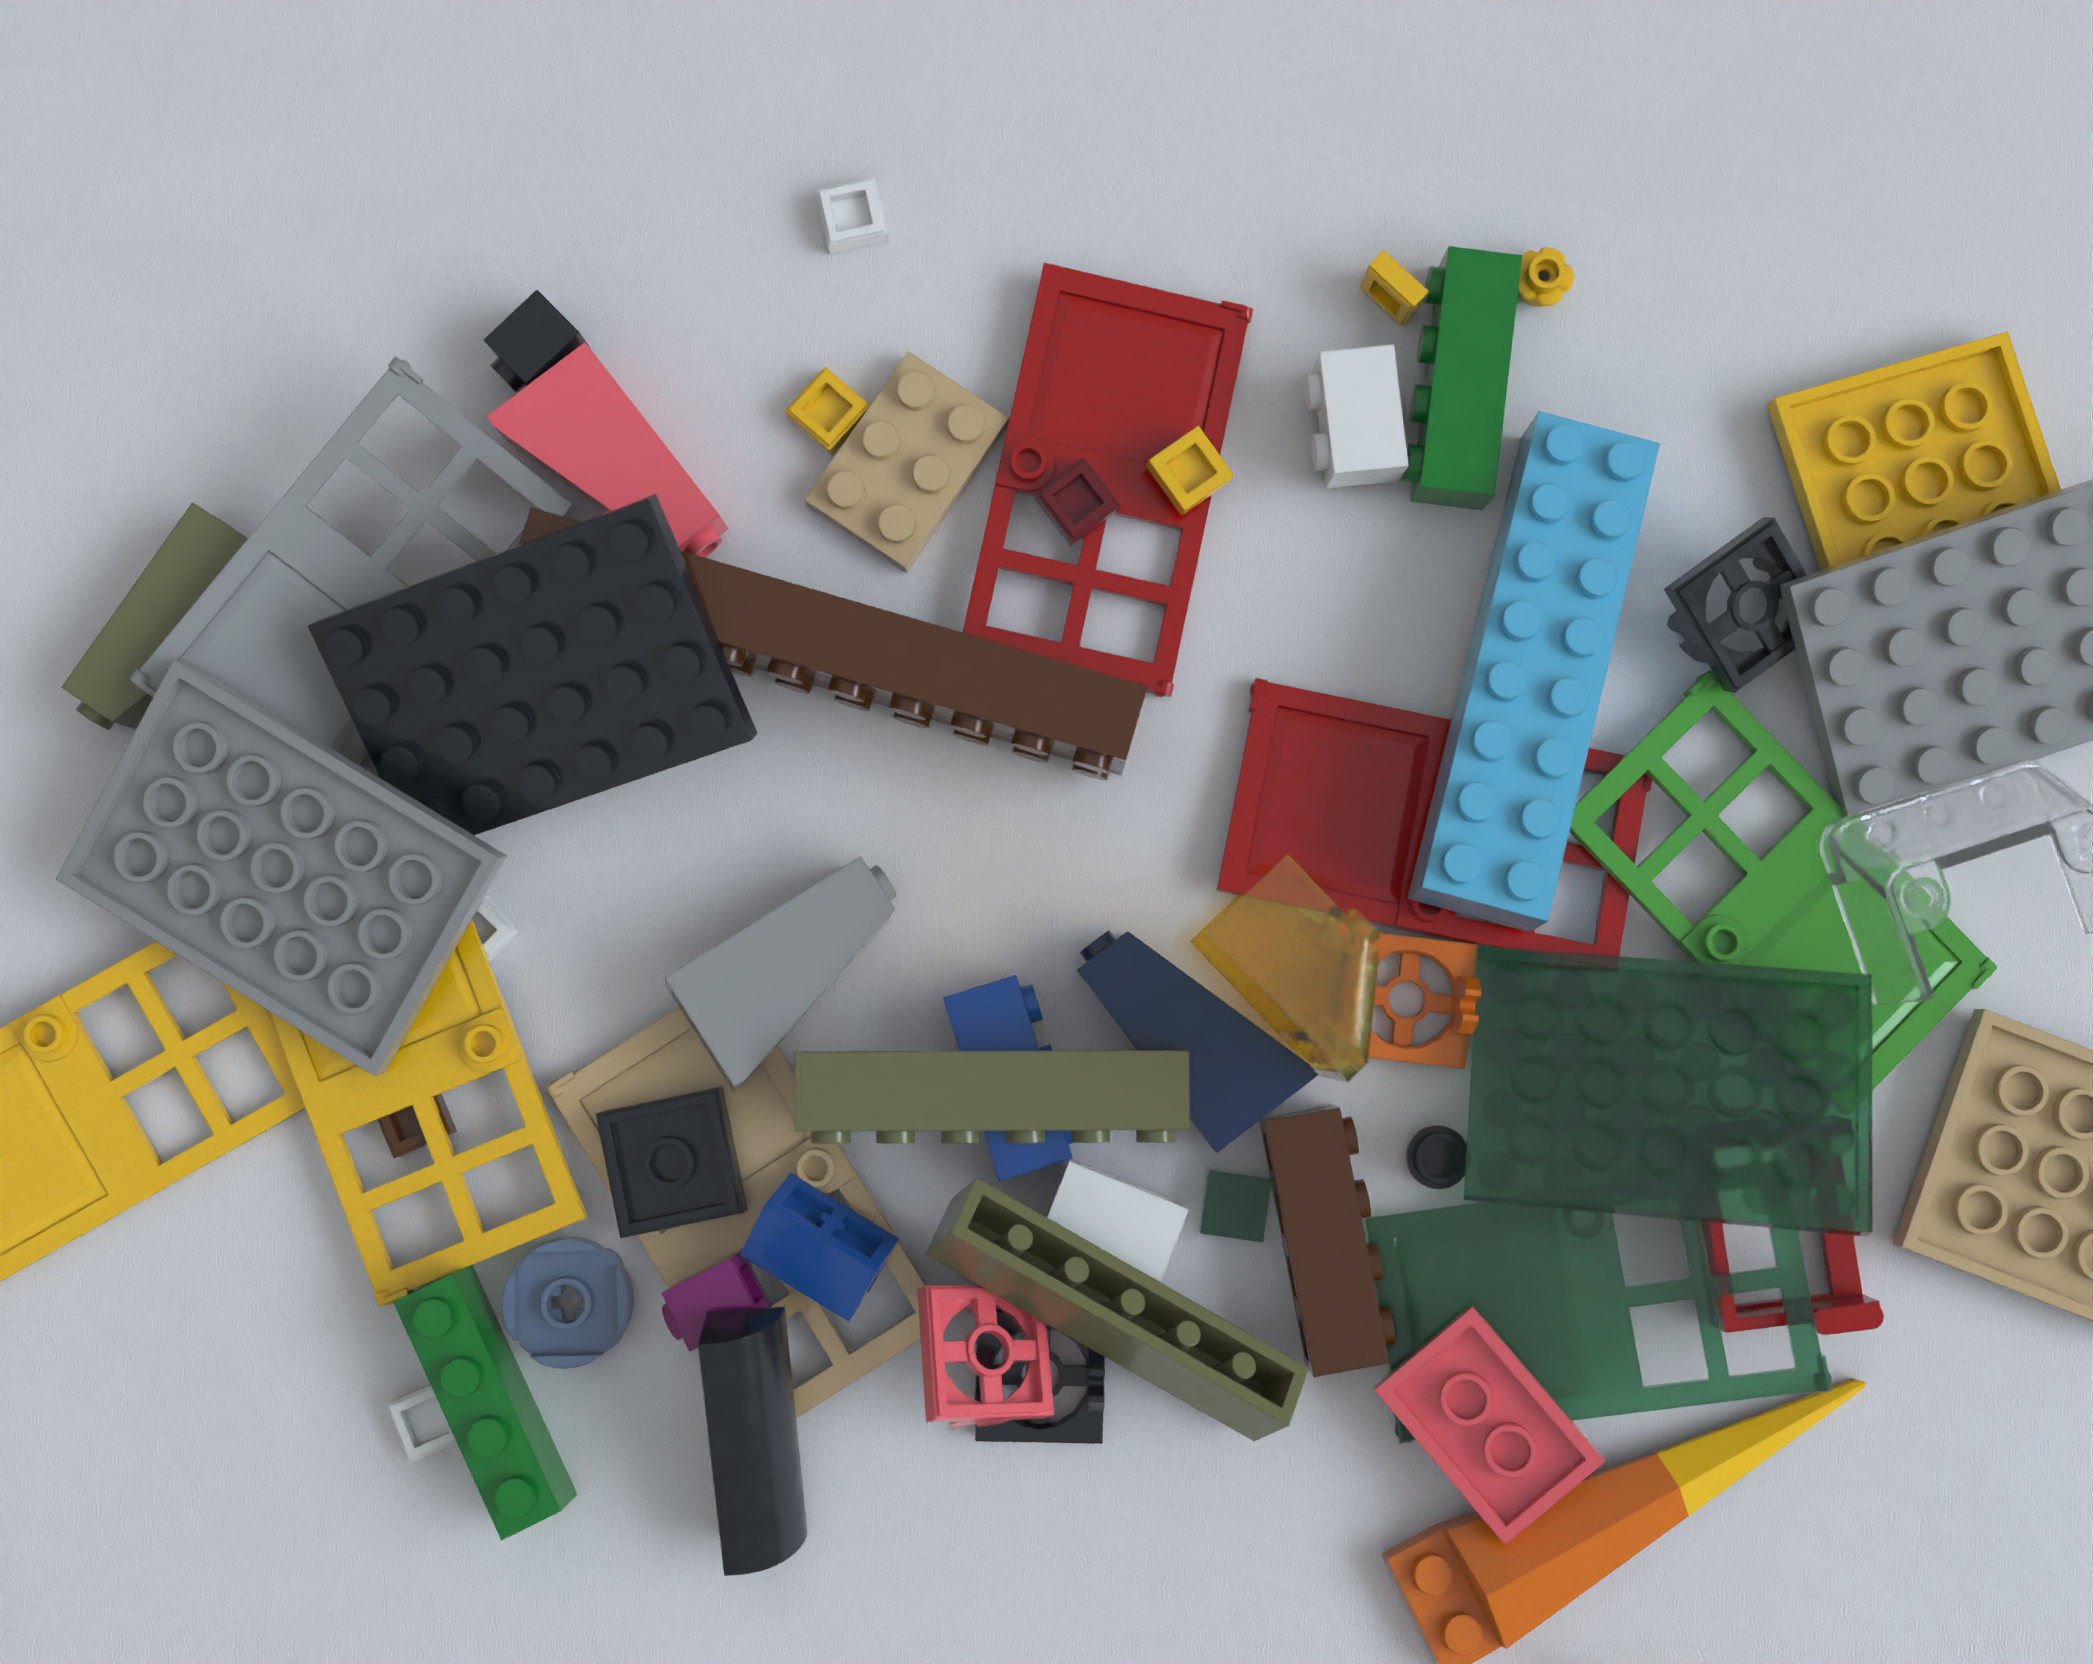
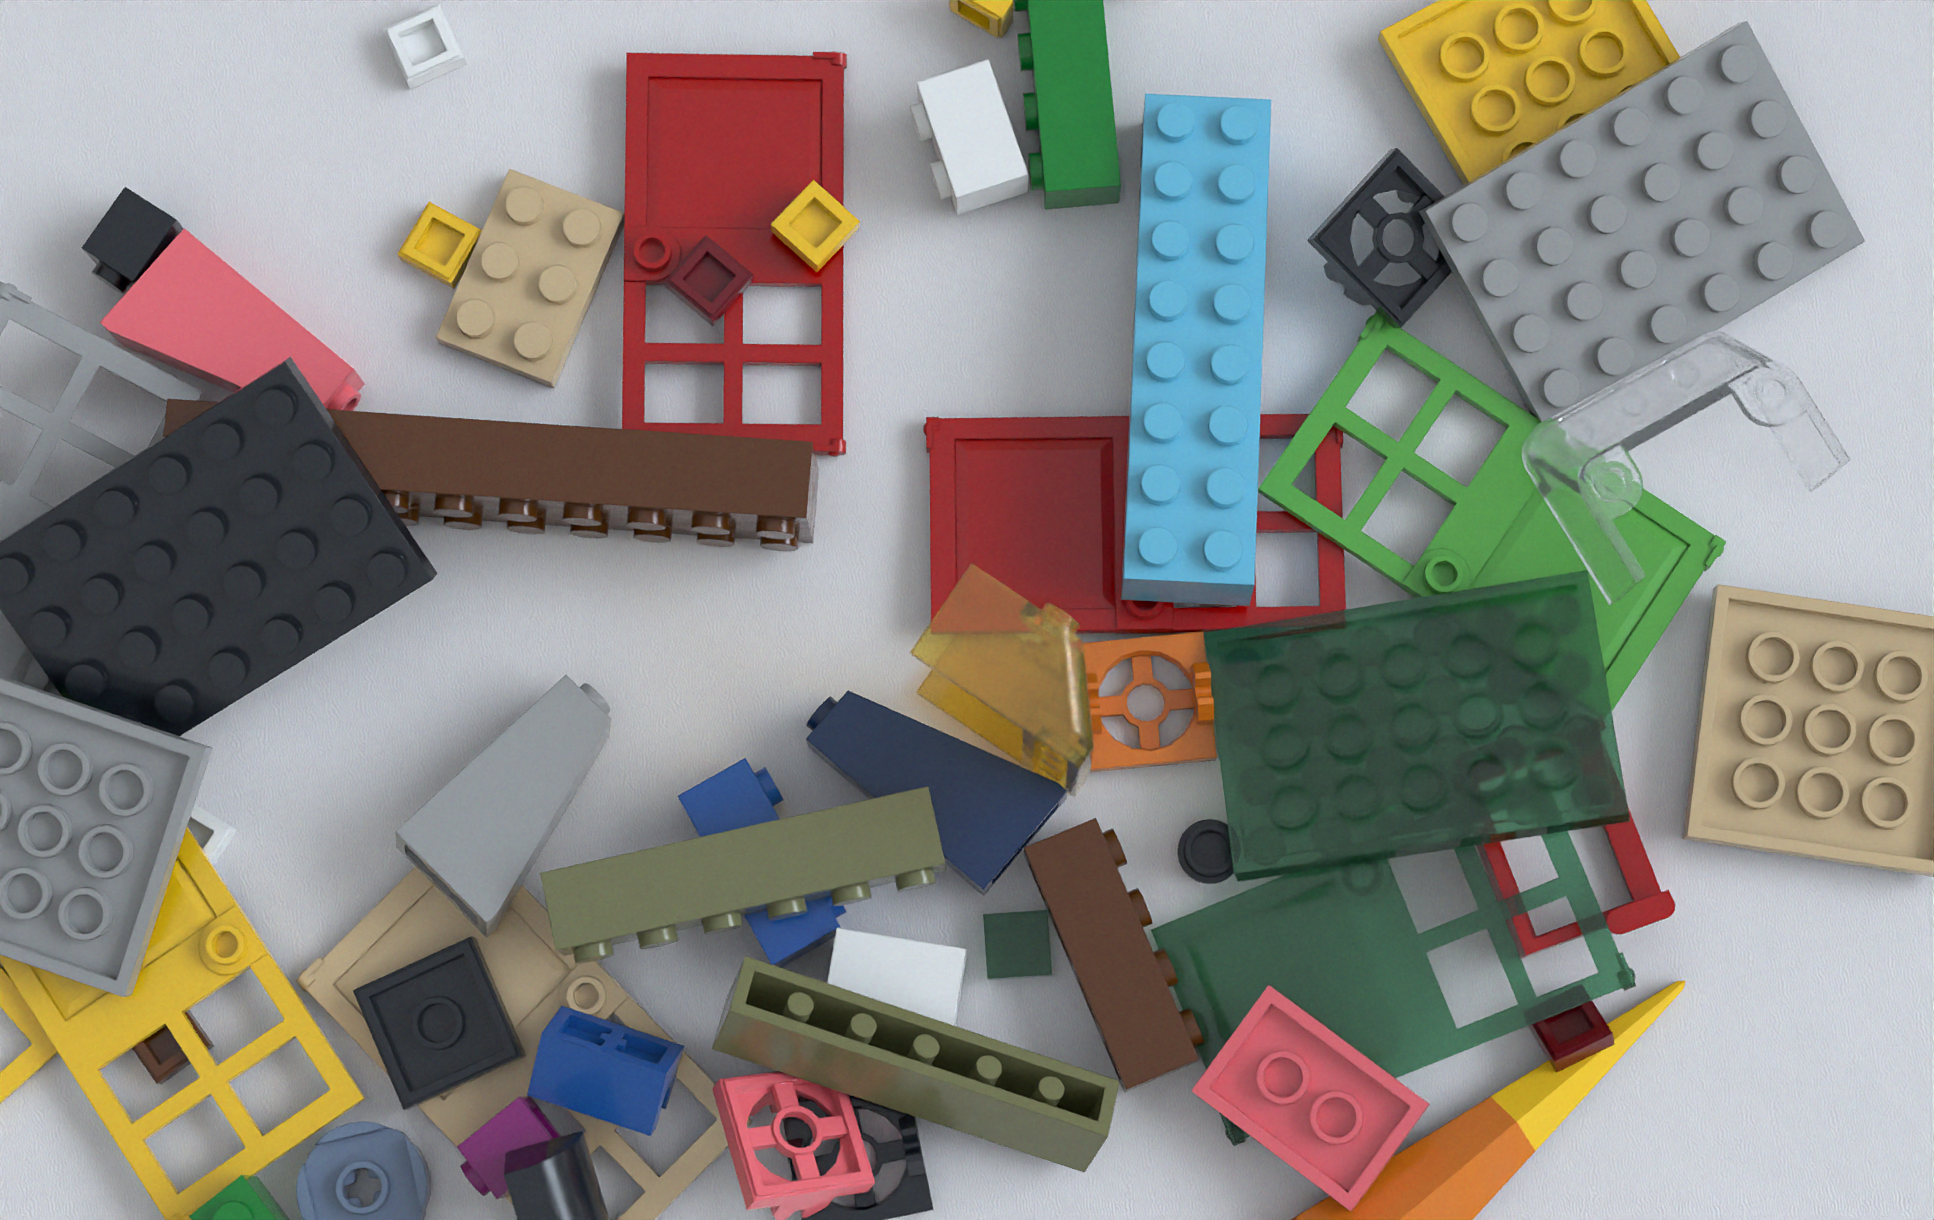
camera: 10 degrees left, 5 degrees down
(1750, 1417) = (1572, 1035): none -> dark red tile

